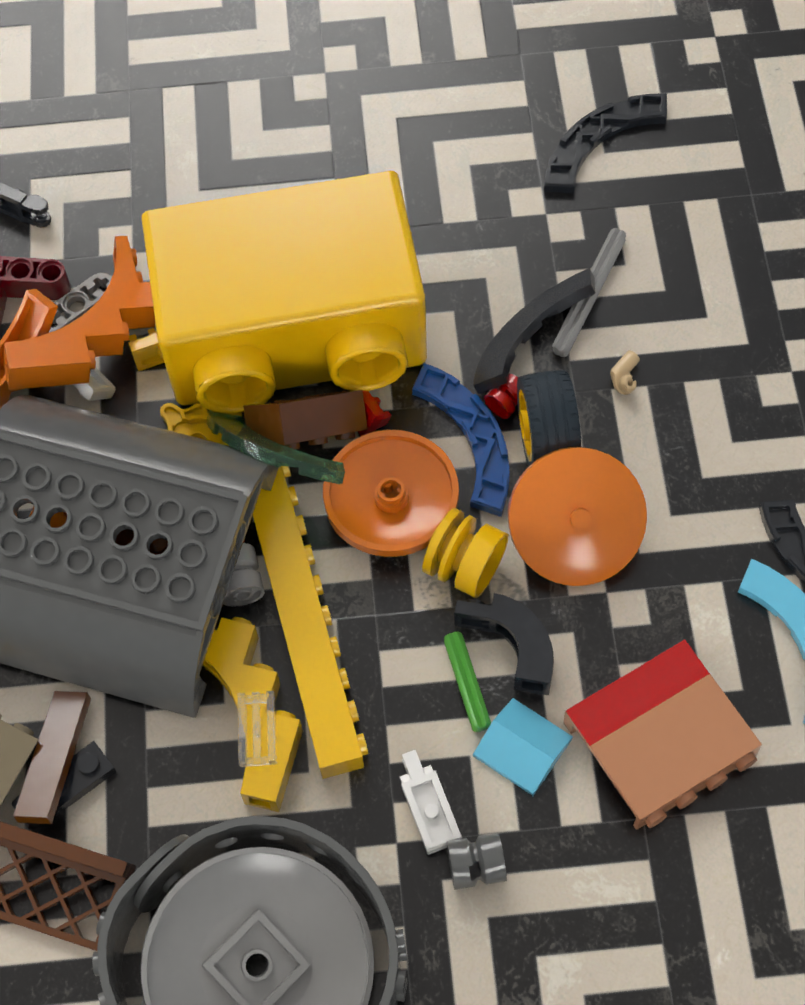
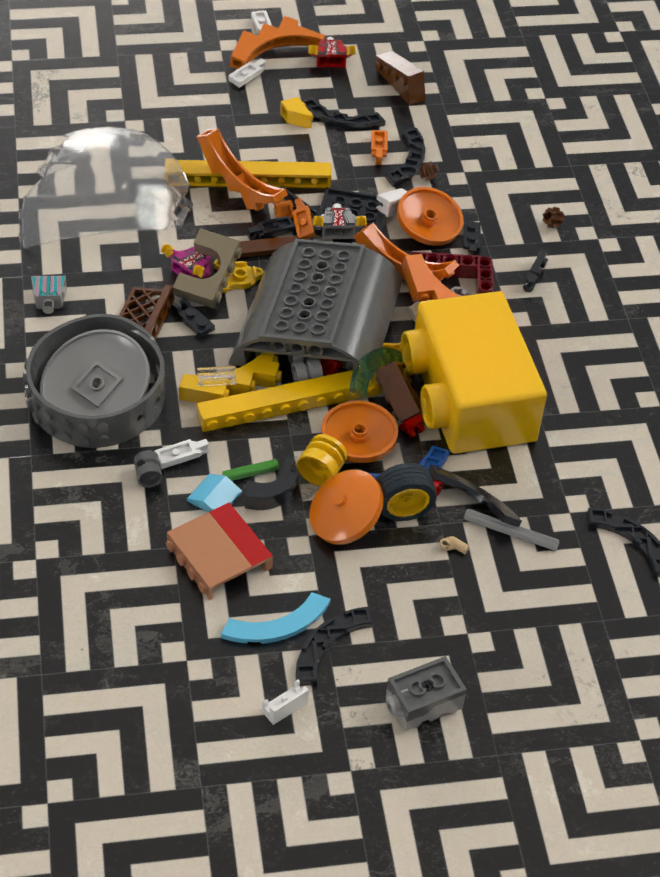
camera: 80 degrees right, 15 degrees down
(52, 758) = (205, 308): tile -> none

